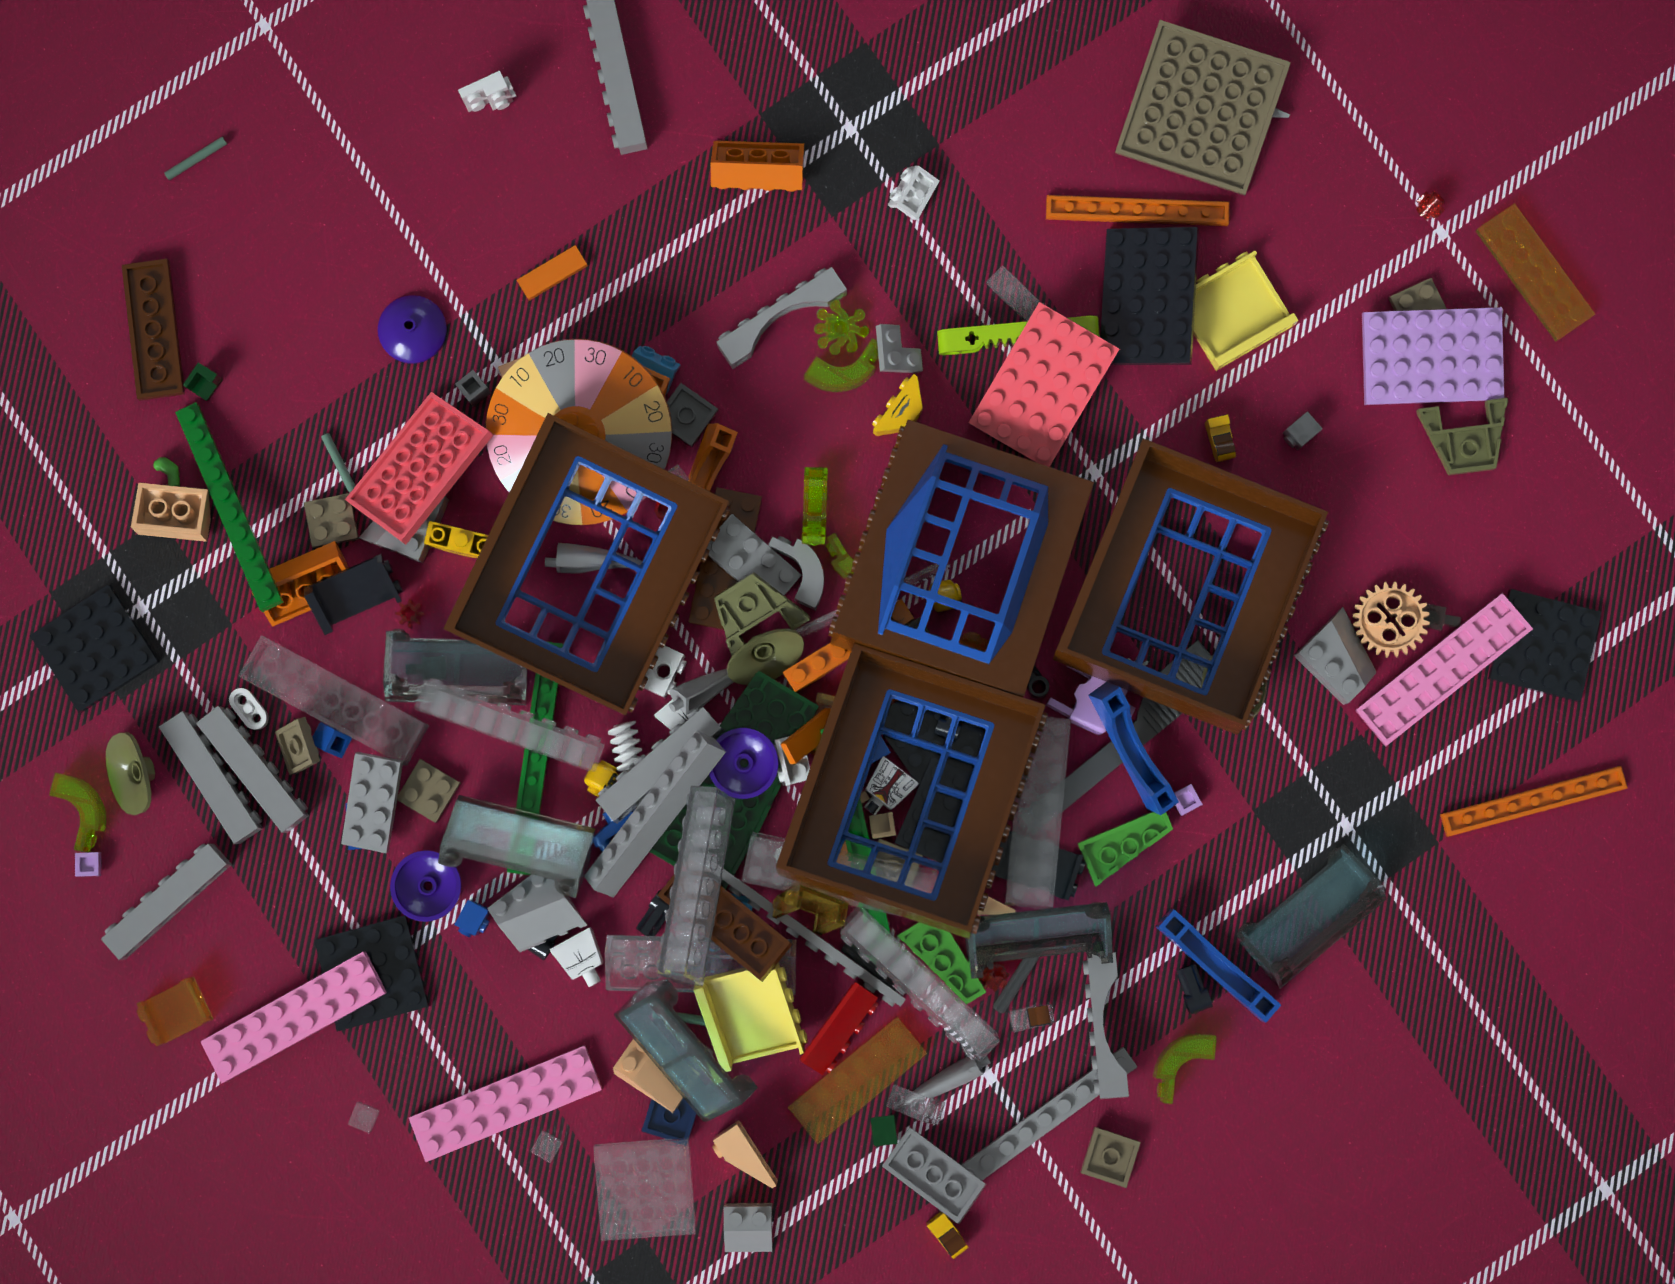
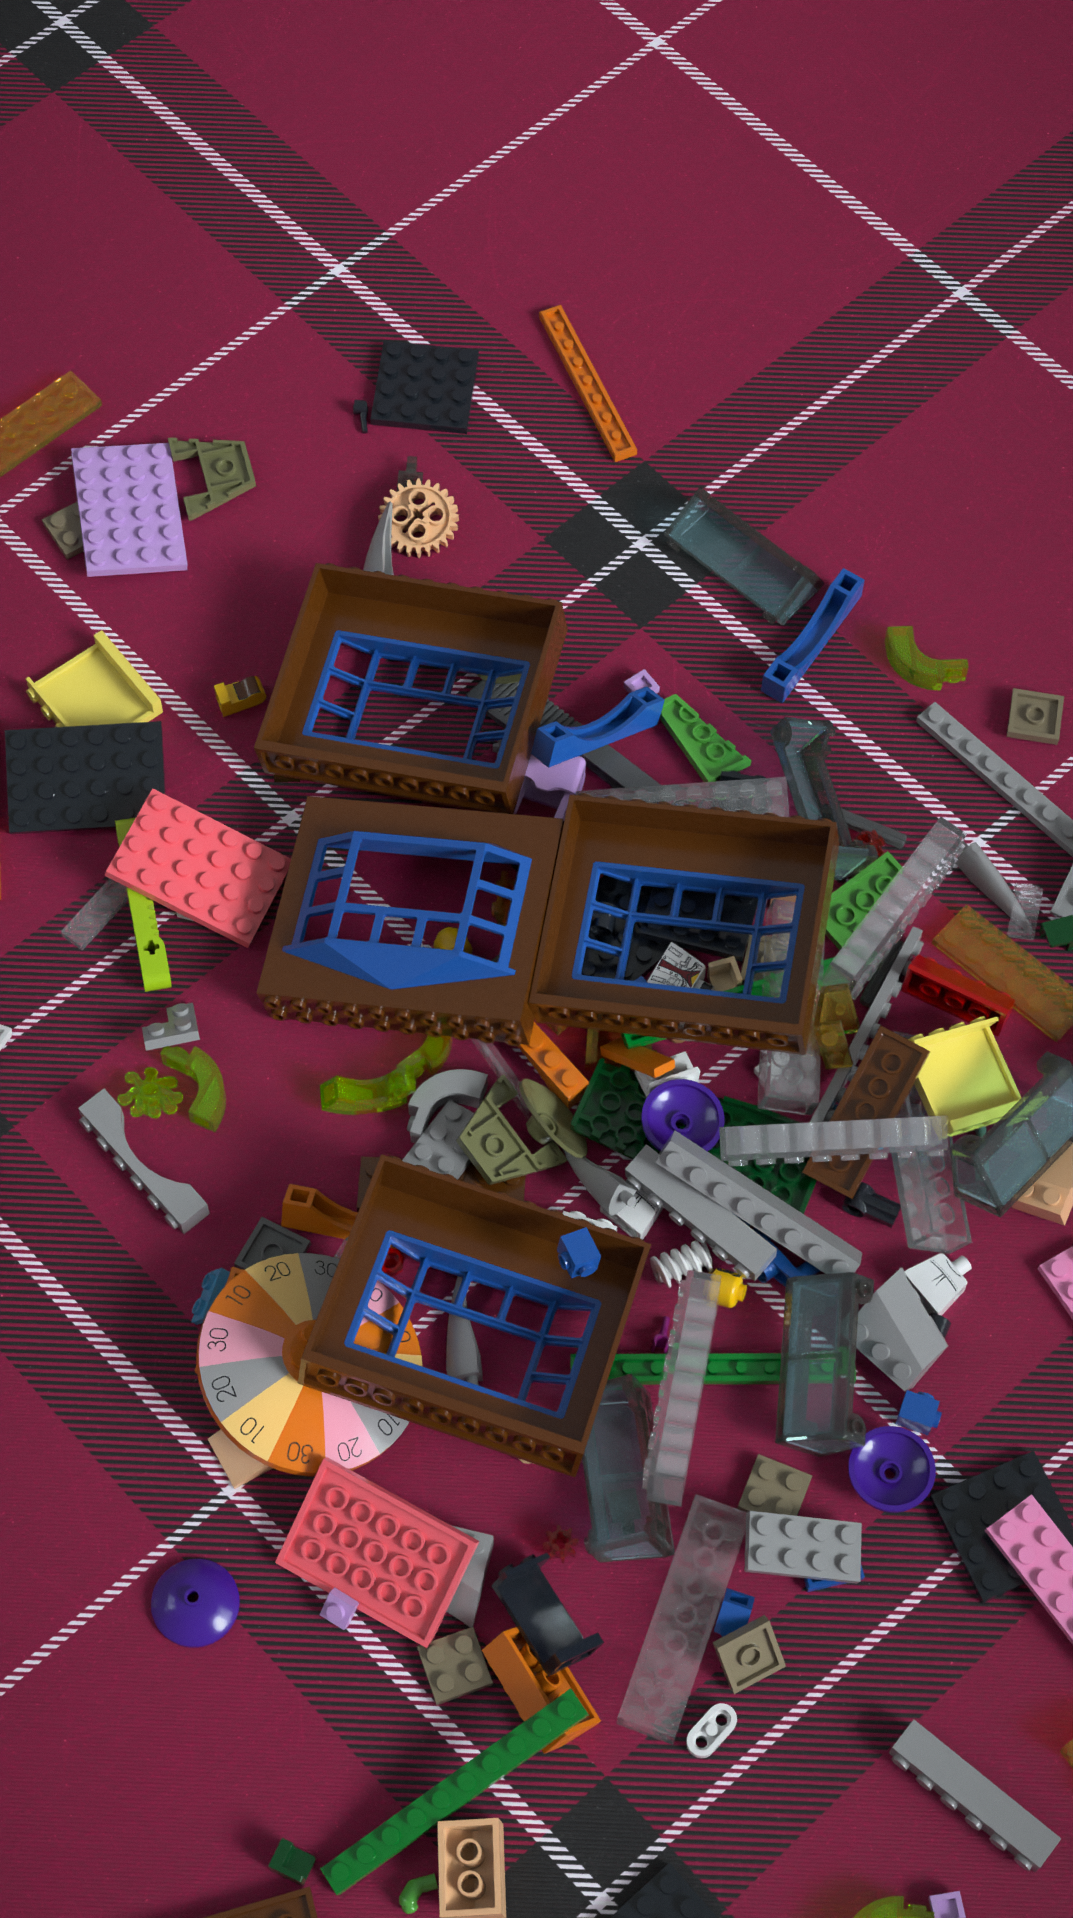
camera: 100 degrees left, 20 degrees down
(129, 773) = (822, 1868): olive hat -> none
(211, 777) = (806, 1764): light grey brick -> none
(253, 769) = (786, 1711): light grey brick -> none
(327, 439) = (380, 1667): sand green bar -> none
(386, 436) = (339, 1608): none -> lavender plate
(454, 539) = (462, 1487): yellow slope -> none
(473, 388) = (266, 1505): flat silver brick -> none
(552, 273) = (108, 1438): orange tile -> none
(568, 721) = (661, 1340): none -> magenta hand
(615, 650) = (578, 1253): none -> blue brick
(900, 408) = (240, 1016): yellow slope -> none
(1031, 1017) = (905, 808): leg -> none
(1111, 1076) = (952, 717): light grey arch -> none
(1195, 994) = (847, 655): black piece -> none
(1301, 431) = (223, 619): flat silver brick -> none
(1338, 658) = (469, 560): light grey wedge -> none
(1340, 576) = (379, 553): none -> light grey piece
(1444, 669) = (465, 466): bright pink plate -> none
(1524, 583) = (360, 407): none -> black hand

